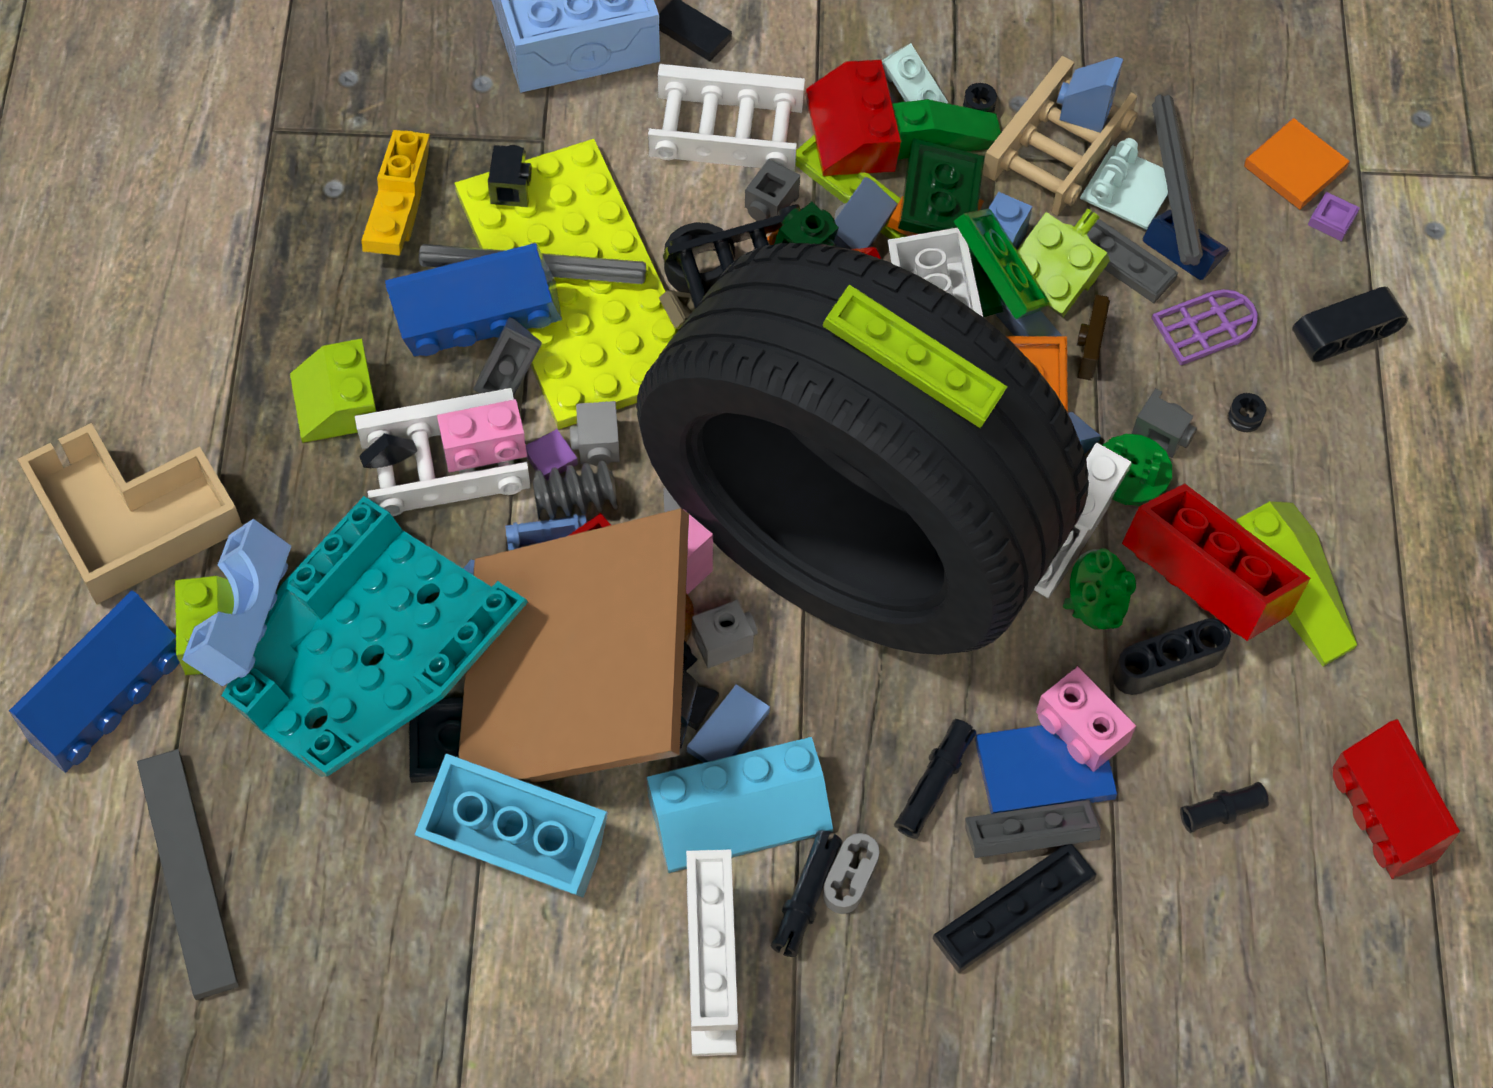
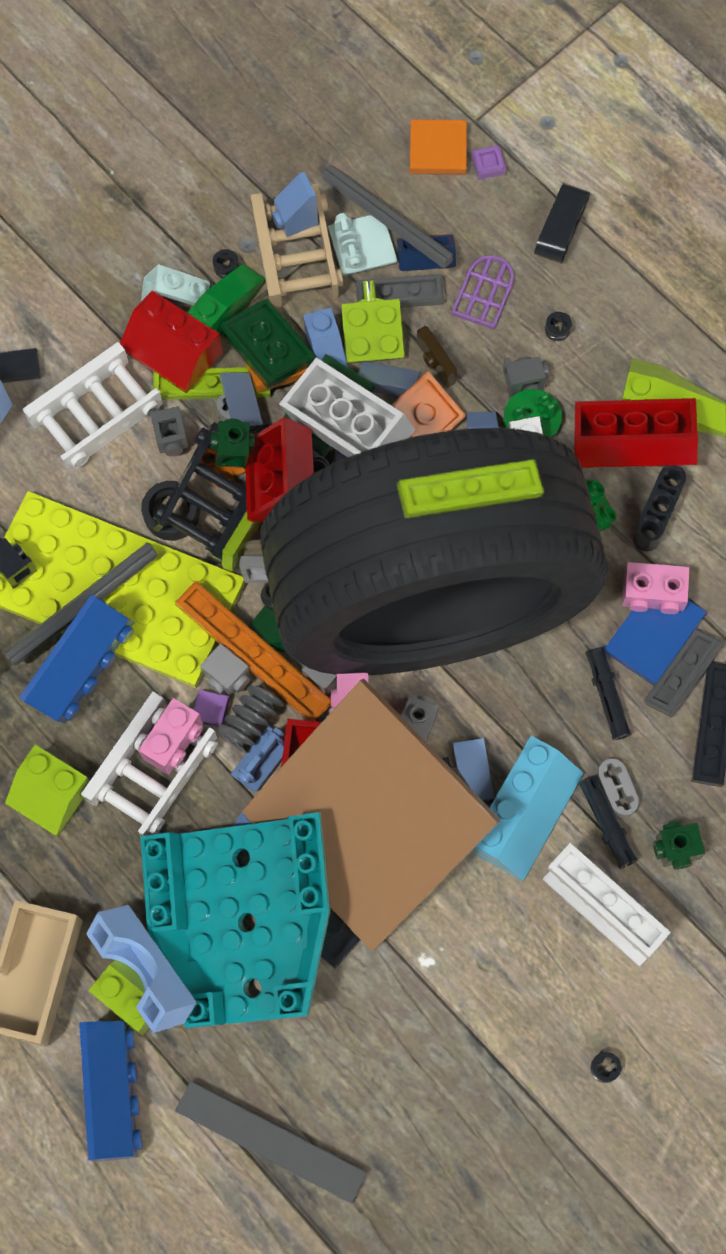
camera: 40 degrees left, 10 degrees up
(387, 451) = (124, 797): black tile -> none
(508, 359) = (131, 677): dark grey slope -> none
(513, 825) = (428, 941): medium azure slope -> none
(639, 481) = (254, 652): none -> orange tile
(677, 306) = (189, 551): dark tan tile -> none
(850, 976) = (688, 840): none -> dark green brick
(1002, 262) = (353, 359): green tile -> none

